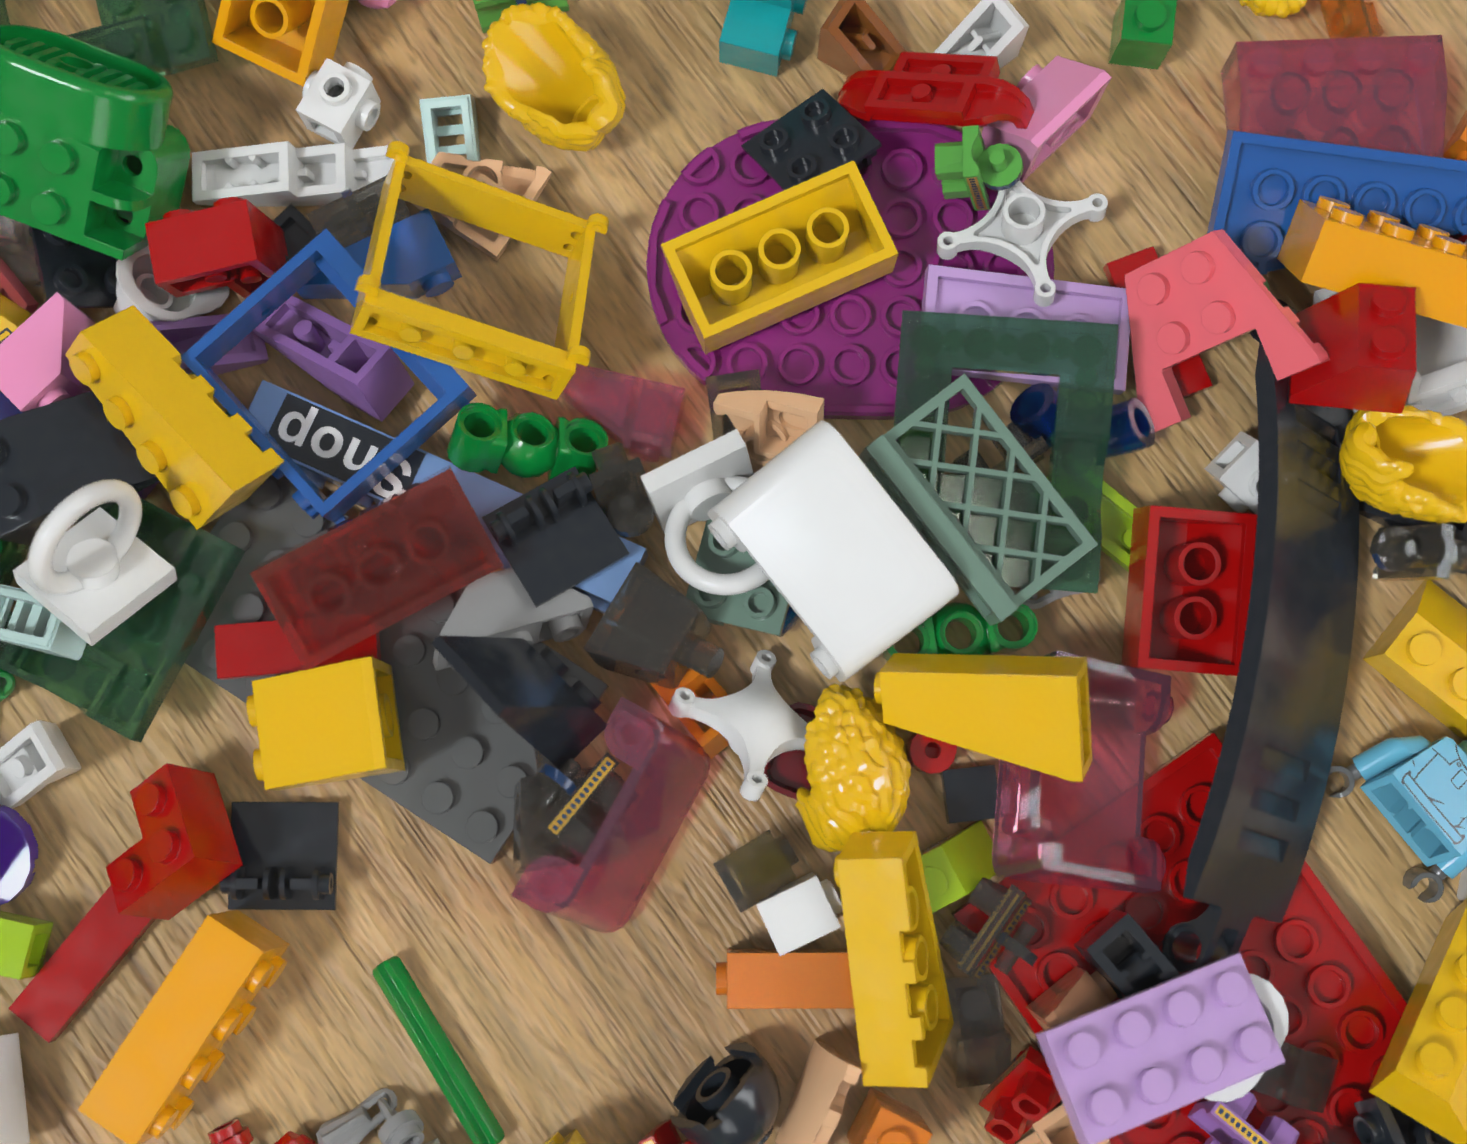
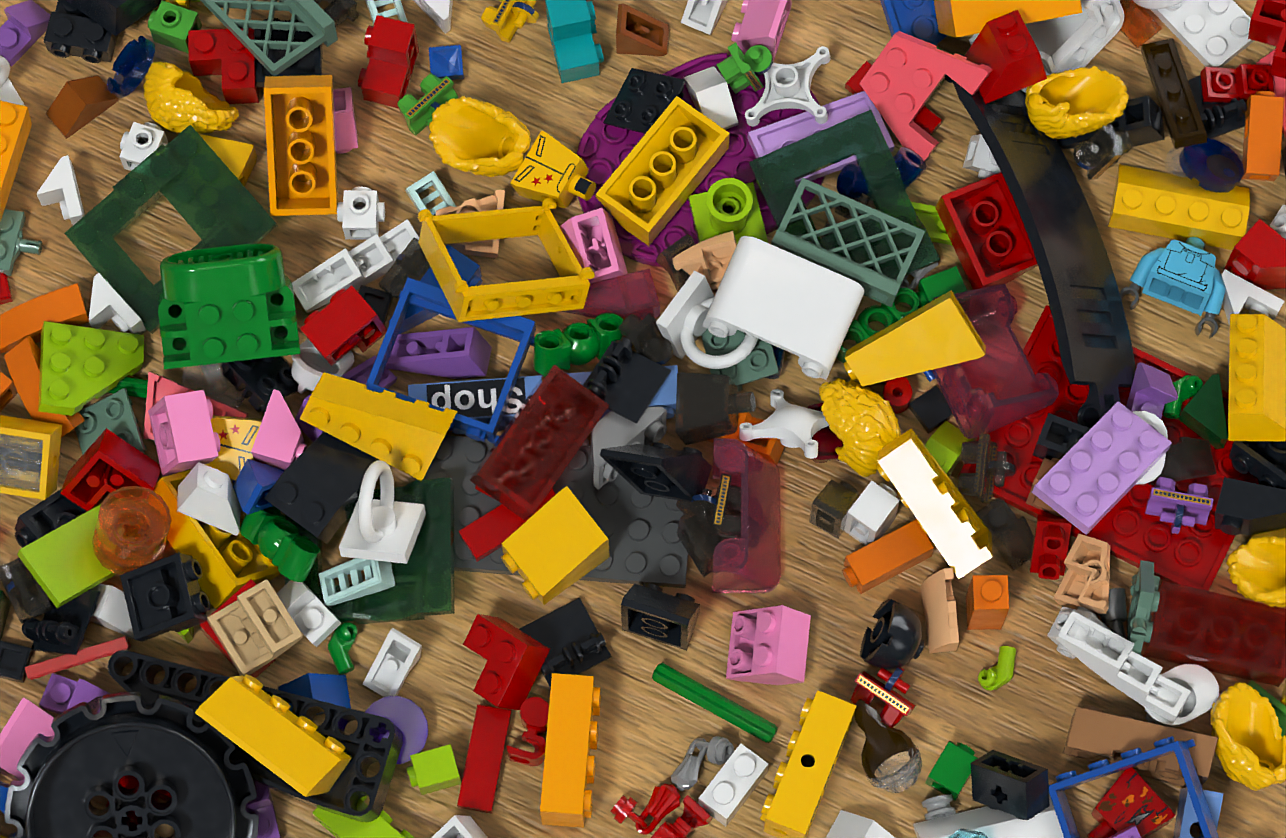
camera: 25 degrees left, 10 degrees down
(170, 942) = (534, 719): none -> red leg
(420, 896) = (659, 615): none -> black slope
(553, 1018) = (768, 646): none -> bright pink slope
(627, 317) = (595, 244): none -> bright pink slope
(629, 182) = (552, 172): none -> yellow torso
(849, 395) = (727, 208): none -> lime plant
(907, 190) = (712, 97): none -> white slope
(937, 91) = (698, 37): red plate -> none
(1076, 632) = (939, 284): none -> green brick
(1293, 946) = (1150, 390): none -> medium lavender slope
(1335, 965) = (1186, 388): none -> green arm
(1360, 1023) = (1206, 413): none -> dark green slope

